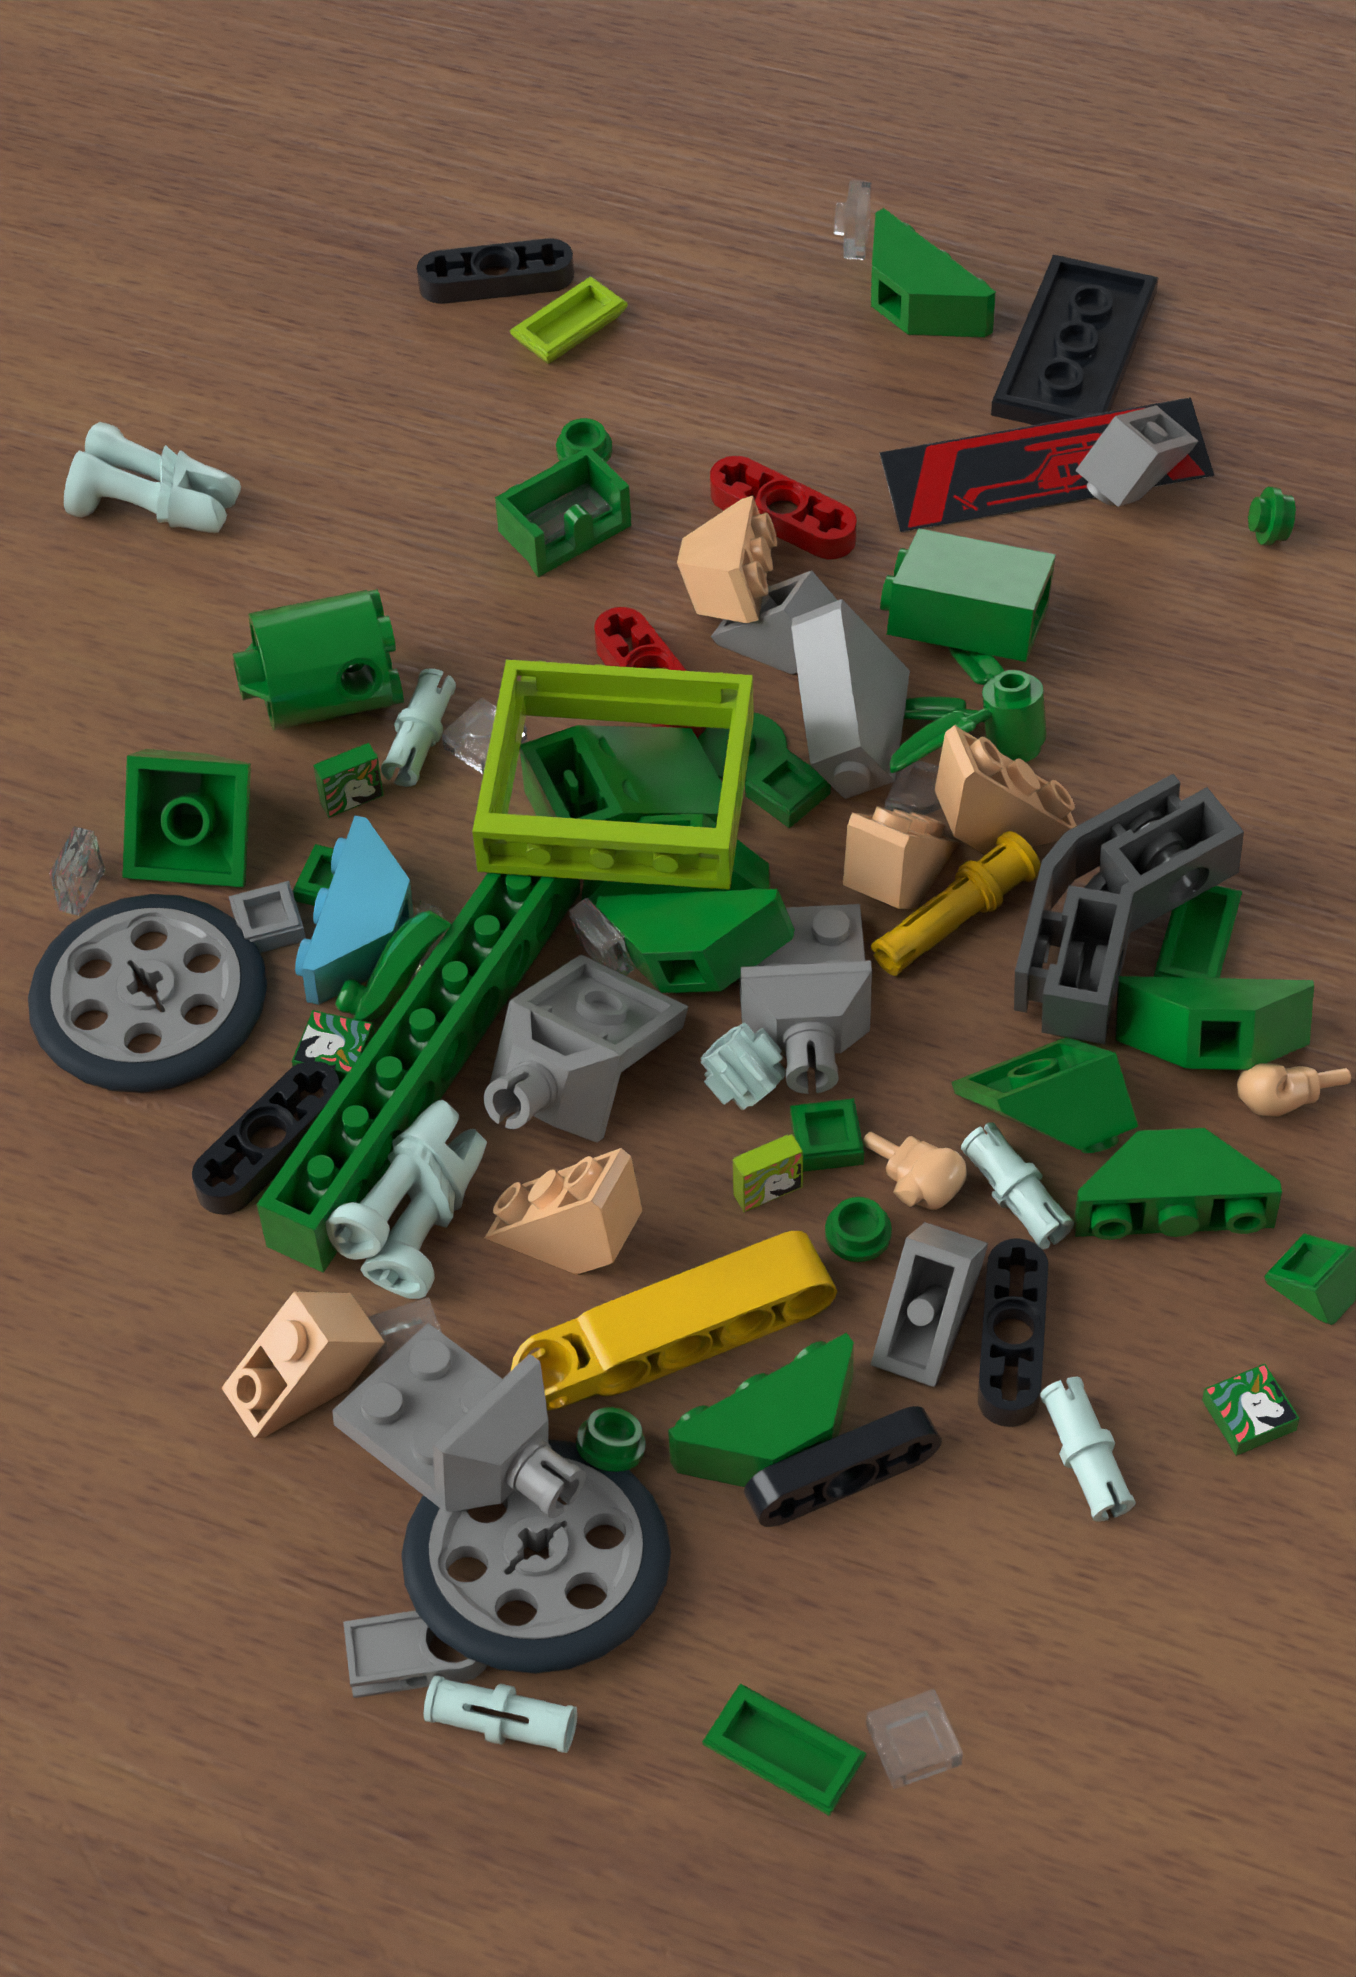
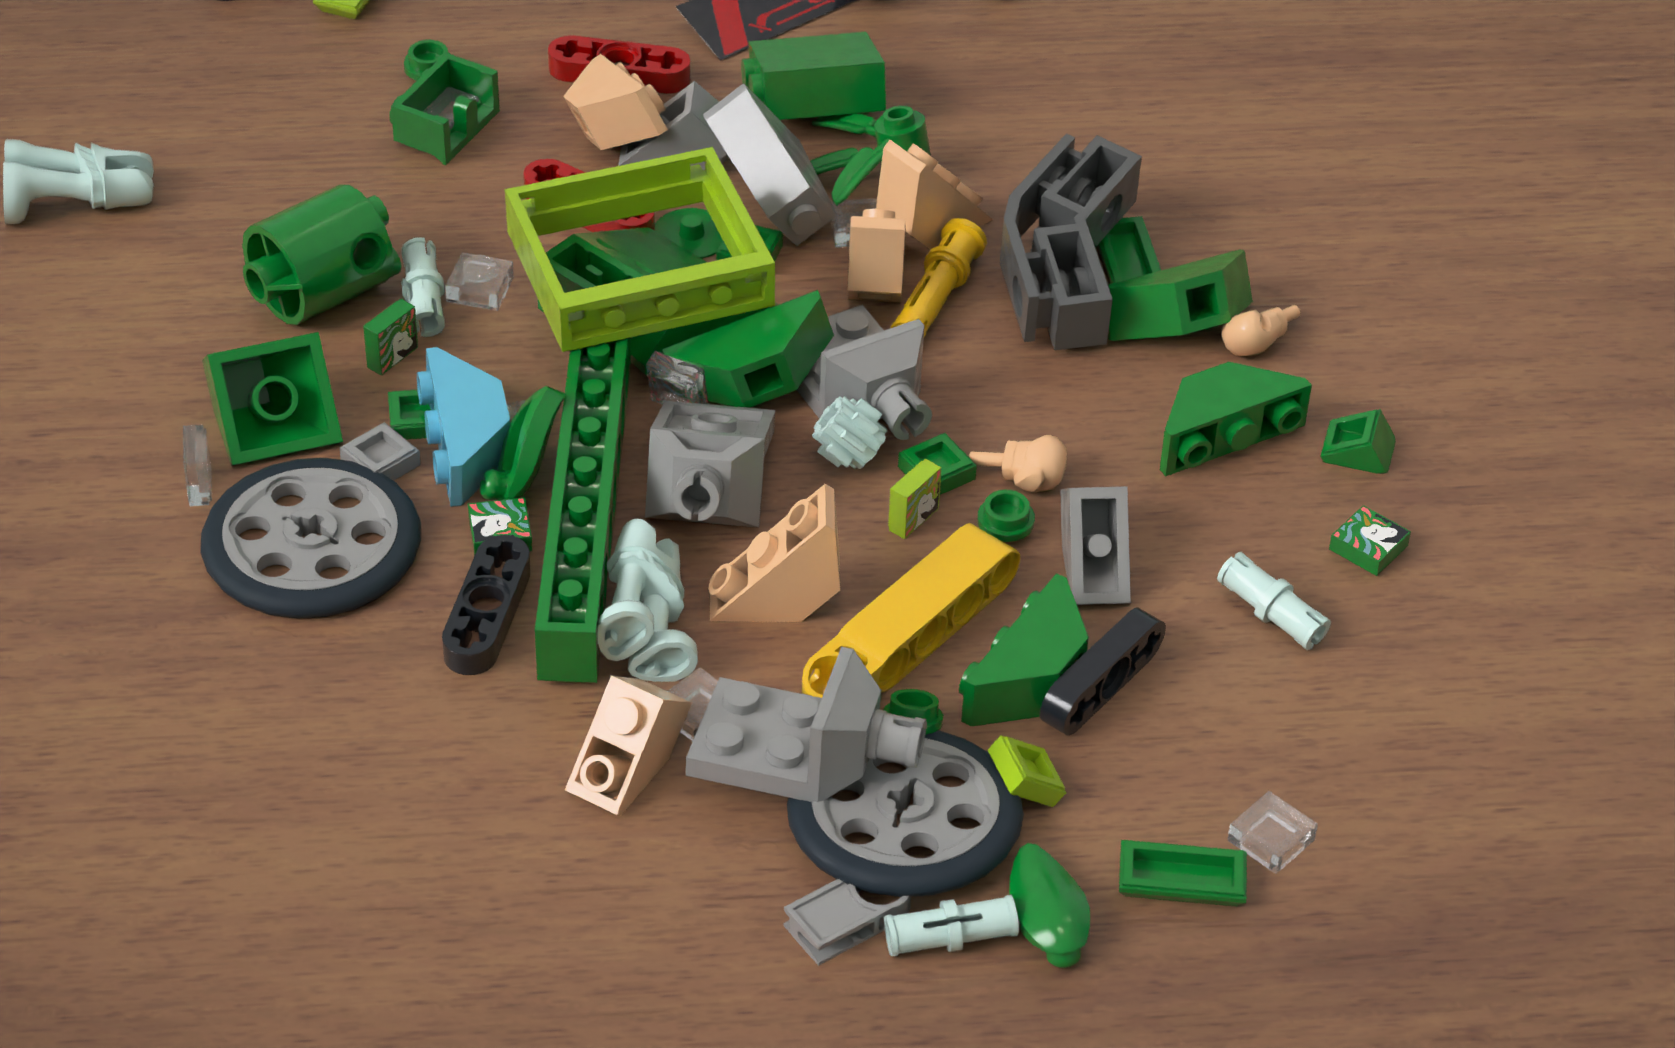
camera: 30 degrees left, 10 degrees down
(614, 1732) = (1049, 906): none -> green arm
(687, 1559) = (1027, 771): none -> lime tile
(997, 1353) = (1162, 567): black beam -> none
(1017, 1185) = (1108, 450): light aqua pin -> none
(1059, 1091) = (1100, 380): green slope -> none

